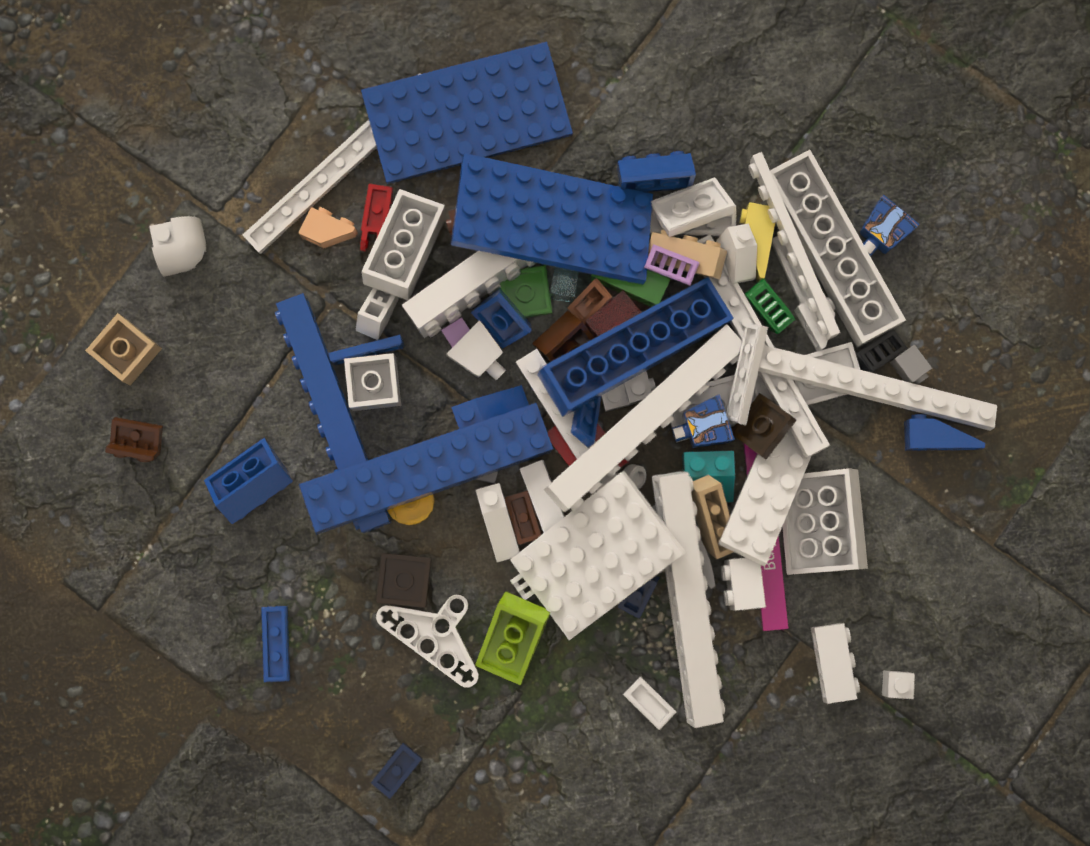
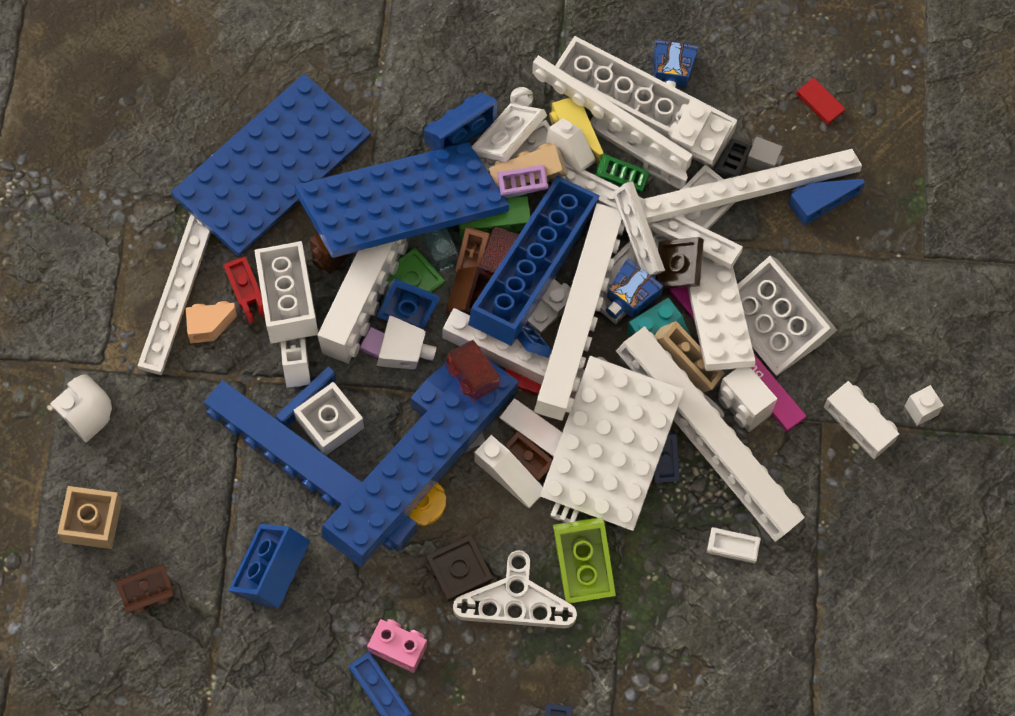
camera: 40 degrees left, 15 degrees down
(311, 616) = (397, 645): none -> bright pink brick
(514, 419) = (472, 370): none -> clear red brick
(728, 178) = (522, 96): none -> white tile
(862, 312) = (699, 131): none -> white plate
(999, 341) = (820, 101): none -> red tile

